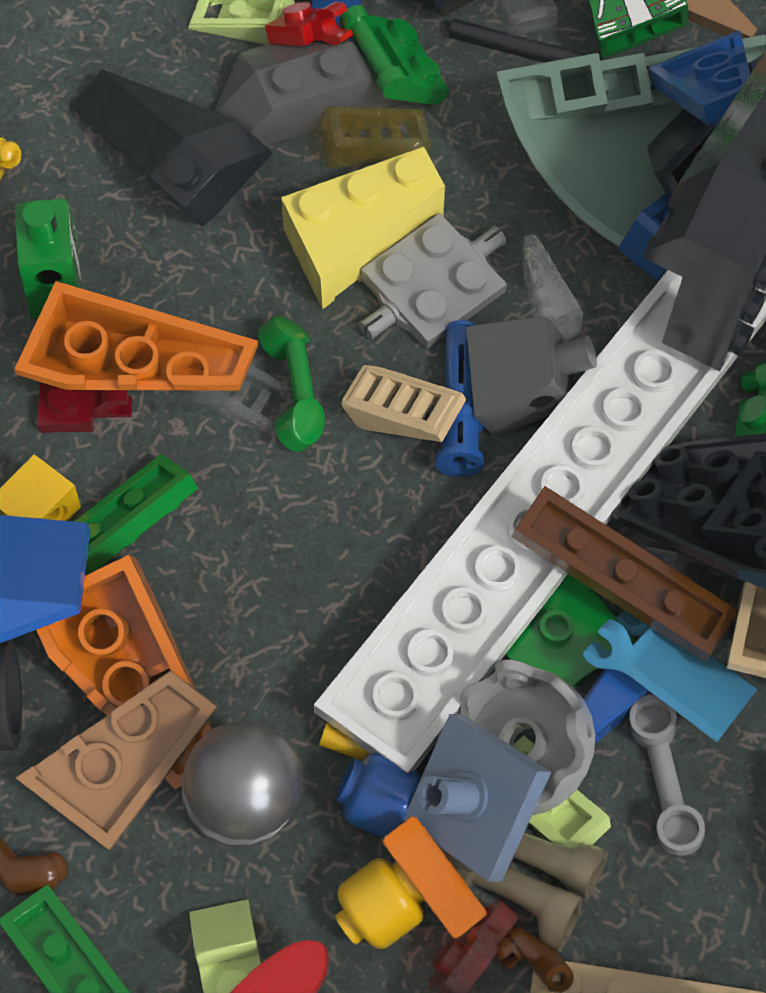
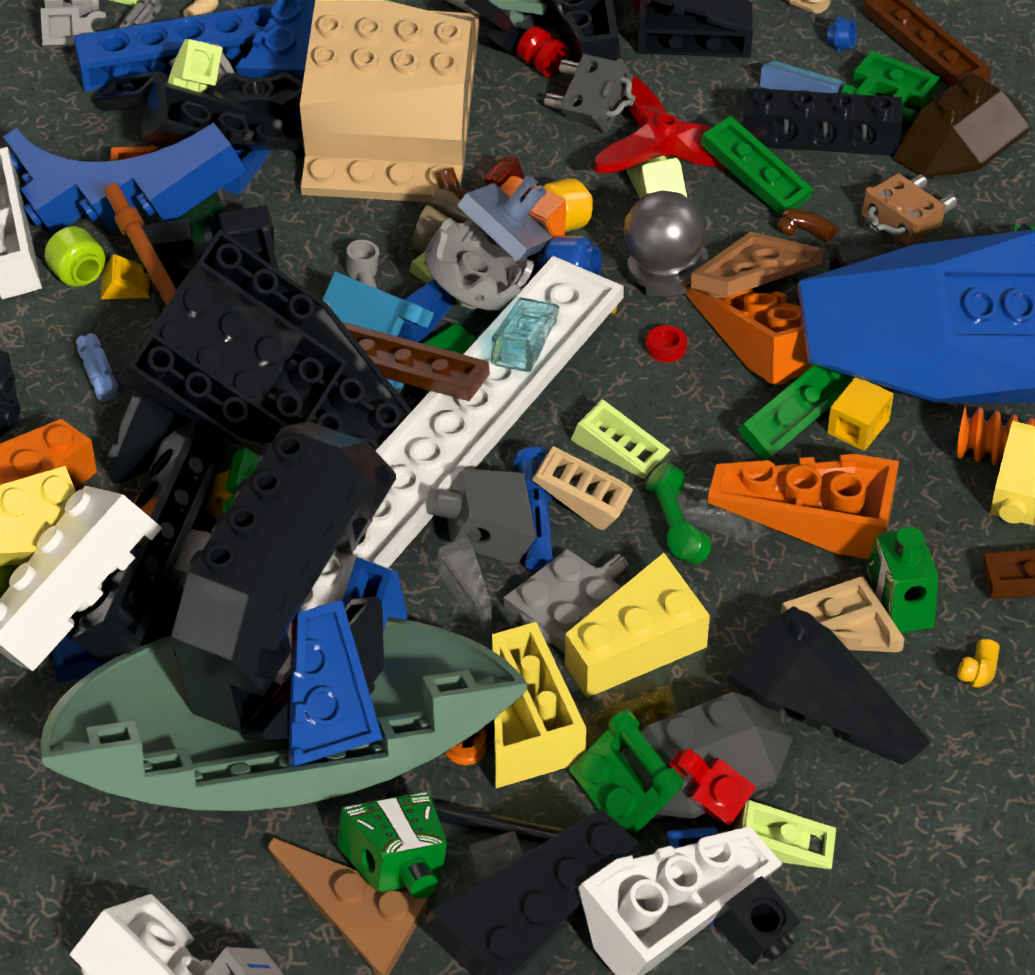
camera: 175 degrees right, 15 degrees down
(129, 235) = (853, 616): none -> tan wing
(263, 659) = (666, 343): none -> red tile
(372, 521) = (601, 443): none -> yellowish green slope
(480, 133) = (544, 725): none -> light yellow wedge
(480, 572) = (521, 339): none -> clear light blue slope

